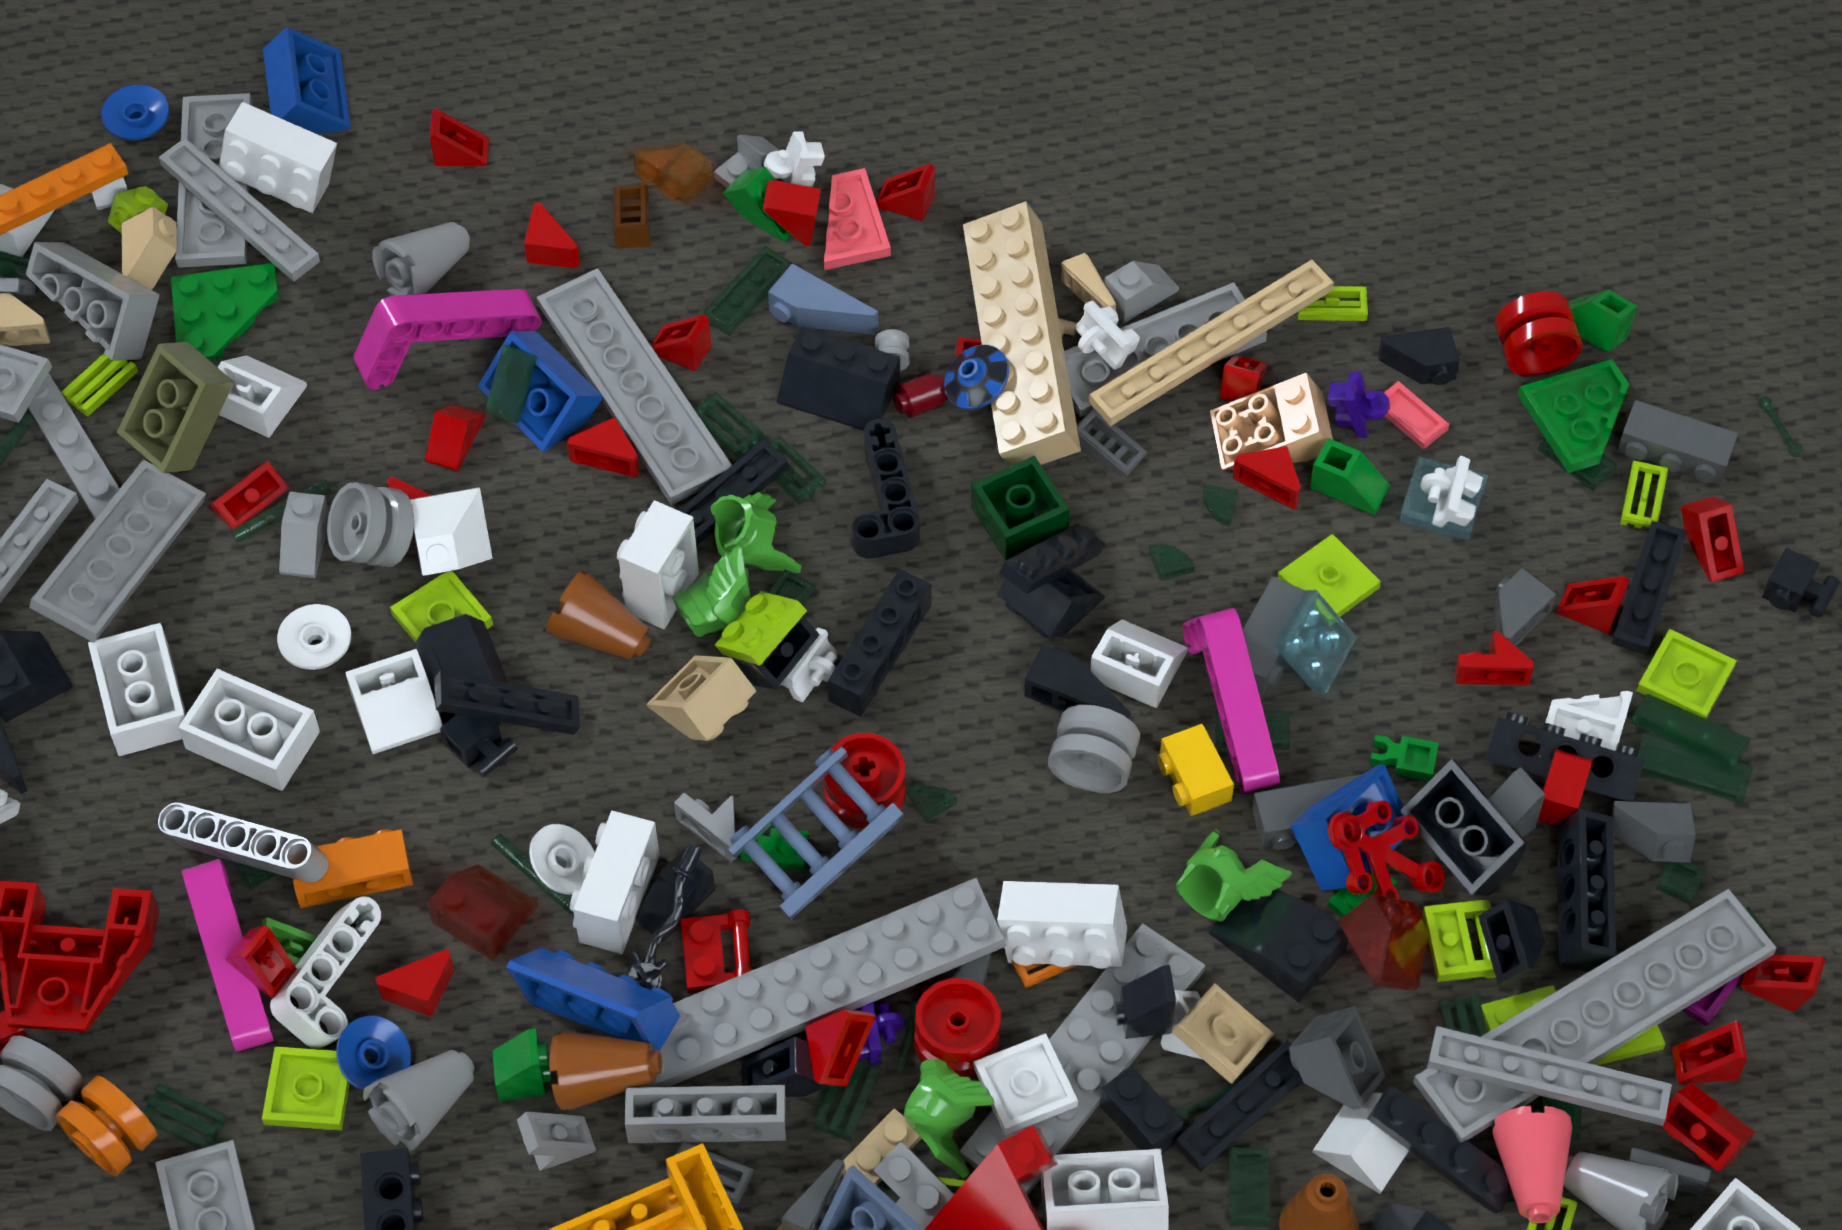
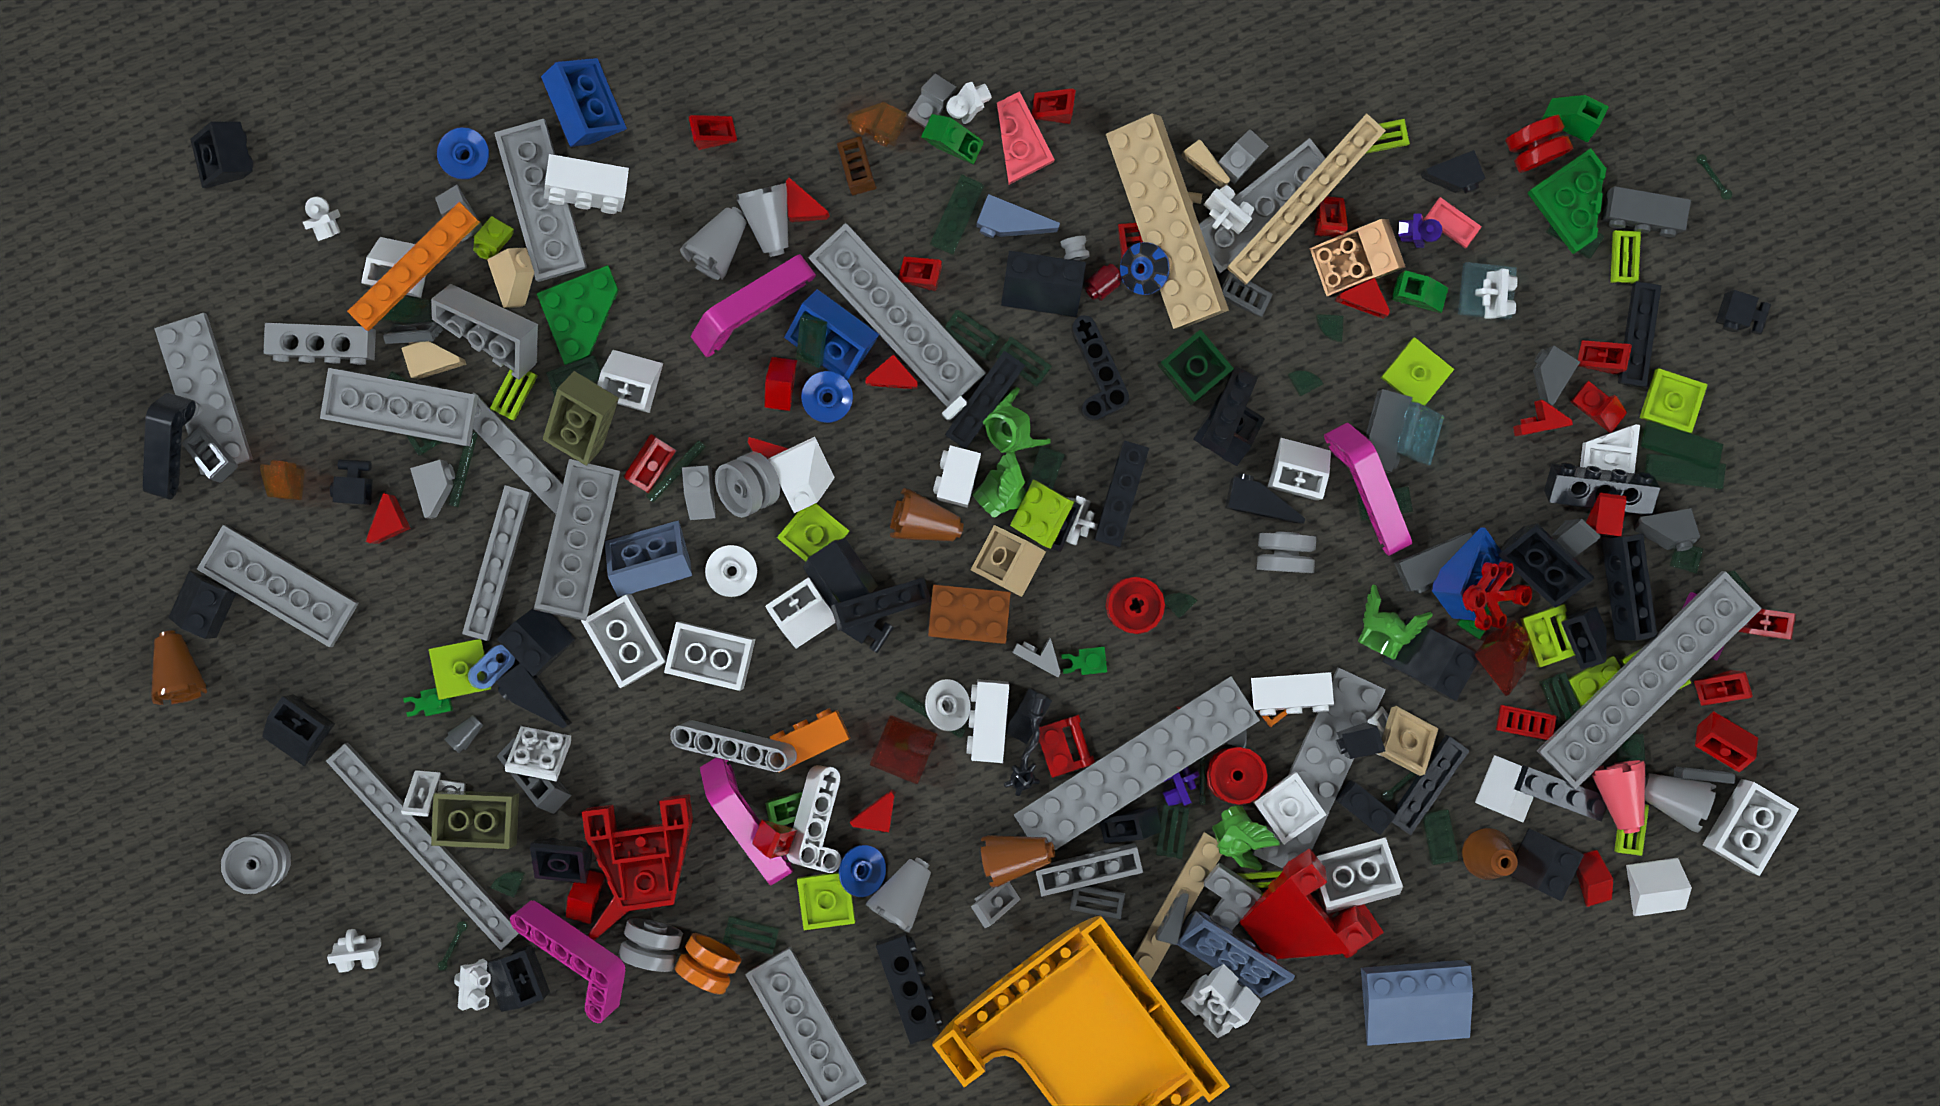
camera: 15 degrees left, 30 degrees up
(206, 603) = (647, 559): none -> sand blue slope
(239, 209) = (569, 230): light grey plate -> none
(497, 237) = (767, 216): none -> light grey cone
(508, 445) = (817, 387): none -> blue dish
(521, 1067) = (961, 863): green slope -> none
(594, 997) = (998, 808): blue slope -> none
(627, 749) = (969, 614): none -> dark orange brick
(679, 496) = (954, 409): none -> white tile
(793, 208) = (978, 145): red slope -> none
(823, 869) = (1125, 681): sand blue fence -> none
(837, 1044) = (1162, 808): red slope -> none
(1195, 770) = (1354, 547): yellow brick -> none
(1338, 1057) = (1486, 746): dark grey slope -> none
(1410, 1039) = (1548, 727): none -> red slope
(1412, 757) = (1496, 504): green plate -> none
(1549, 1076) = (1628, 738): light grey plate -> none
(1582, 666) = (1601, 408): none -> red slope
(1713, 537) = (1679, 284): red slope -> none

